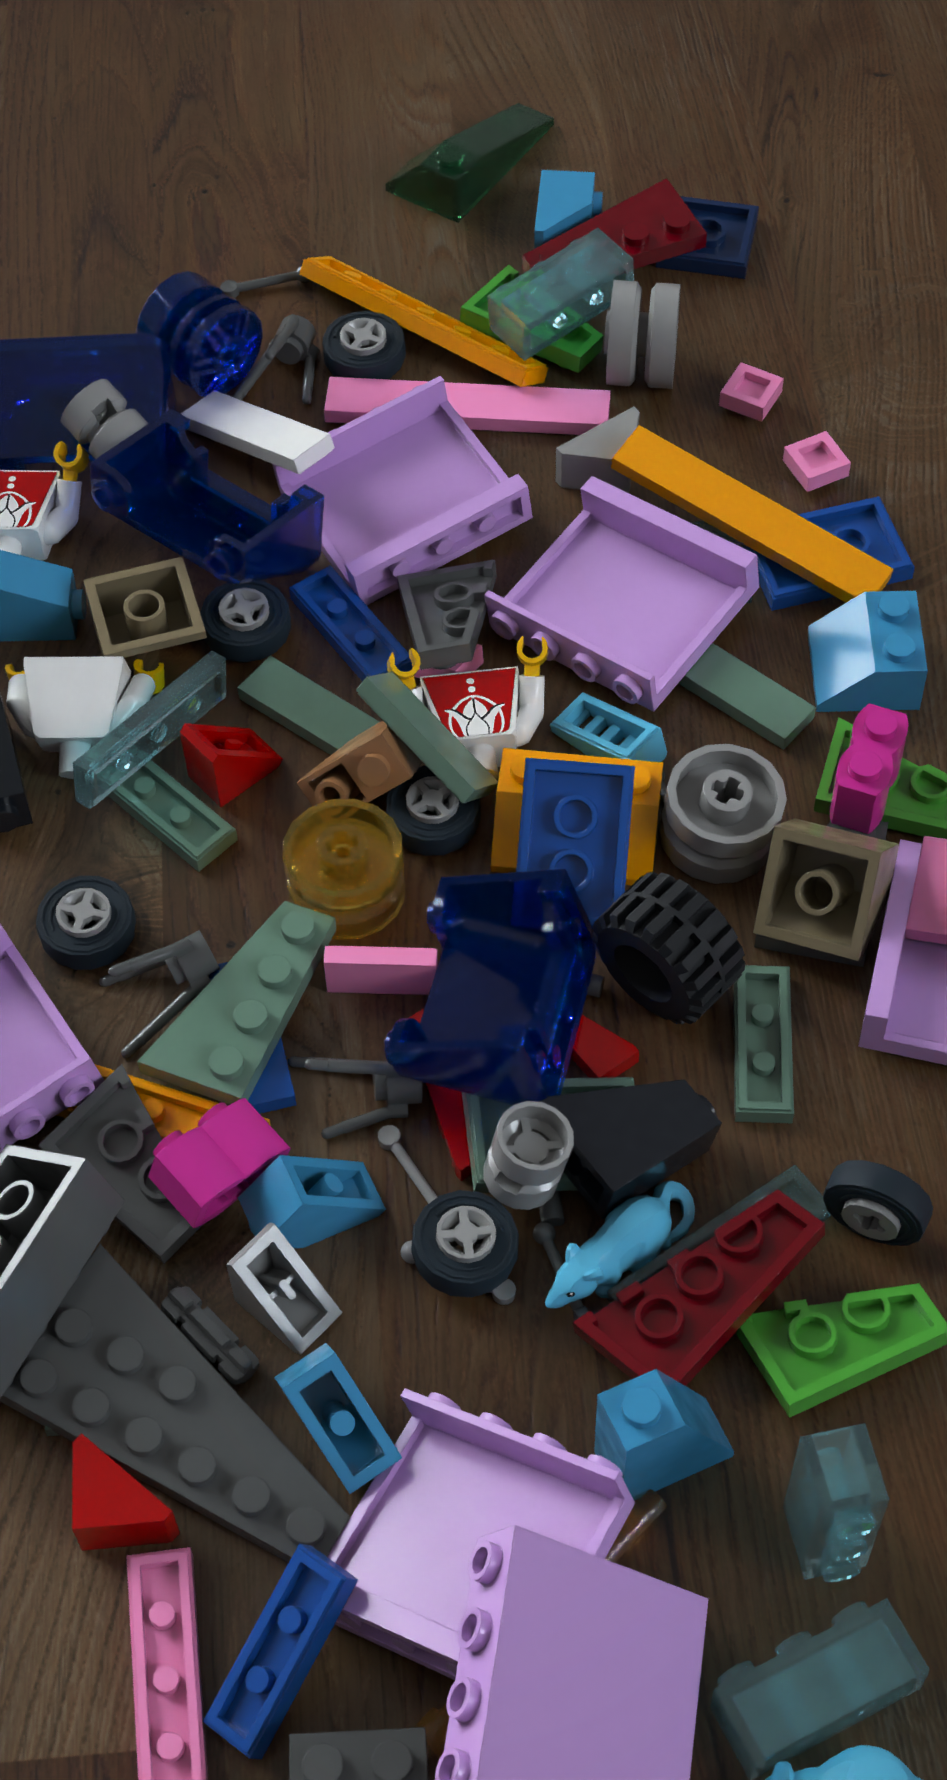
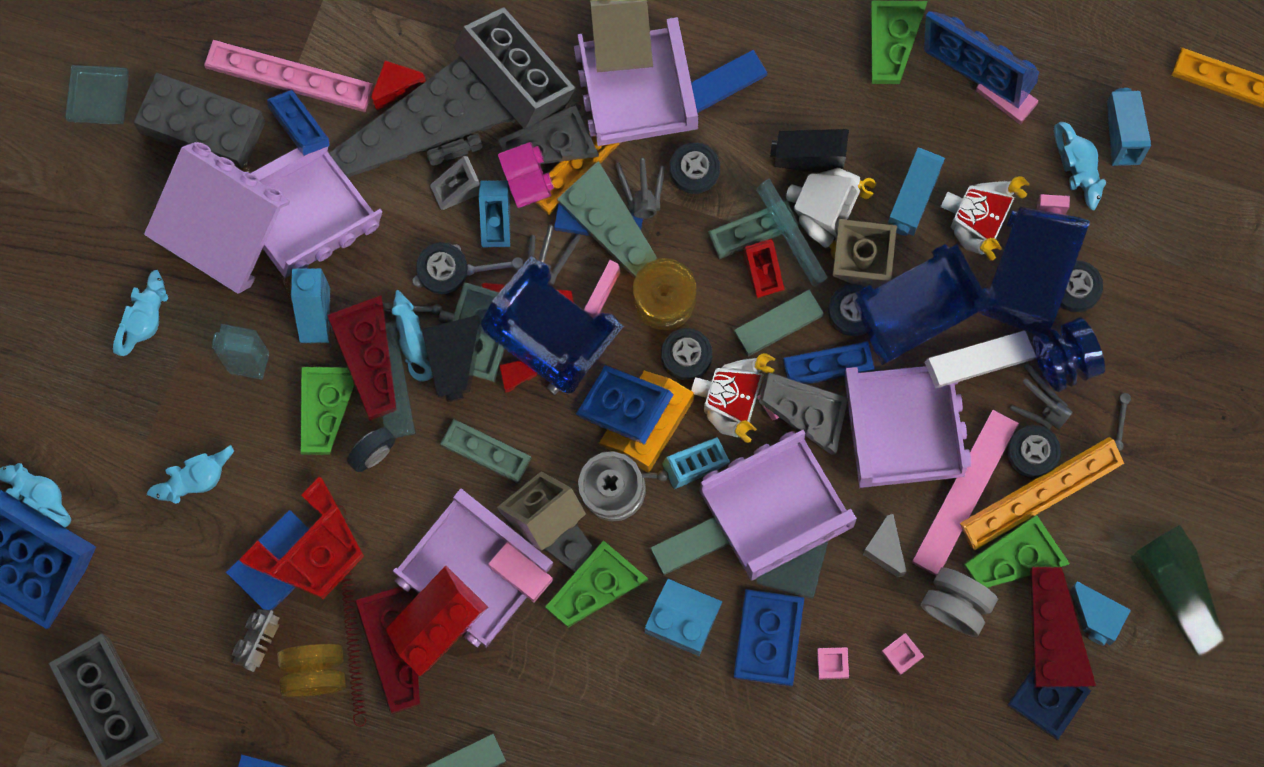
camera: 115 degrees right, 20 degrees up
(100, 417) = (987, 270): light grey wheel -> none
(338, 1417) = (388, 182): dark azure slope -> none
(362, 768) = (720, 327): medium nougat slope -> none
(427, 737) = (714, 356): sand green tile -> none
(528, 1155) = (457, 300): light grey wheel -> none
(558, 293) = (1009, 566): clear light blue brick -> none
(669, 948) = (539, 416): black tyre -> none
(749, 516) = (796, 596): light orange tile -> none
(817, 1686) = (187, 322): clear light blue brick -> none
(868, 768) = (590, 559): dark pink brick -> none

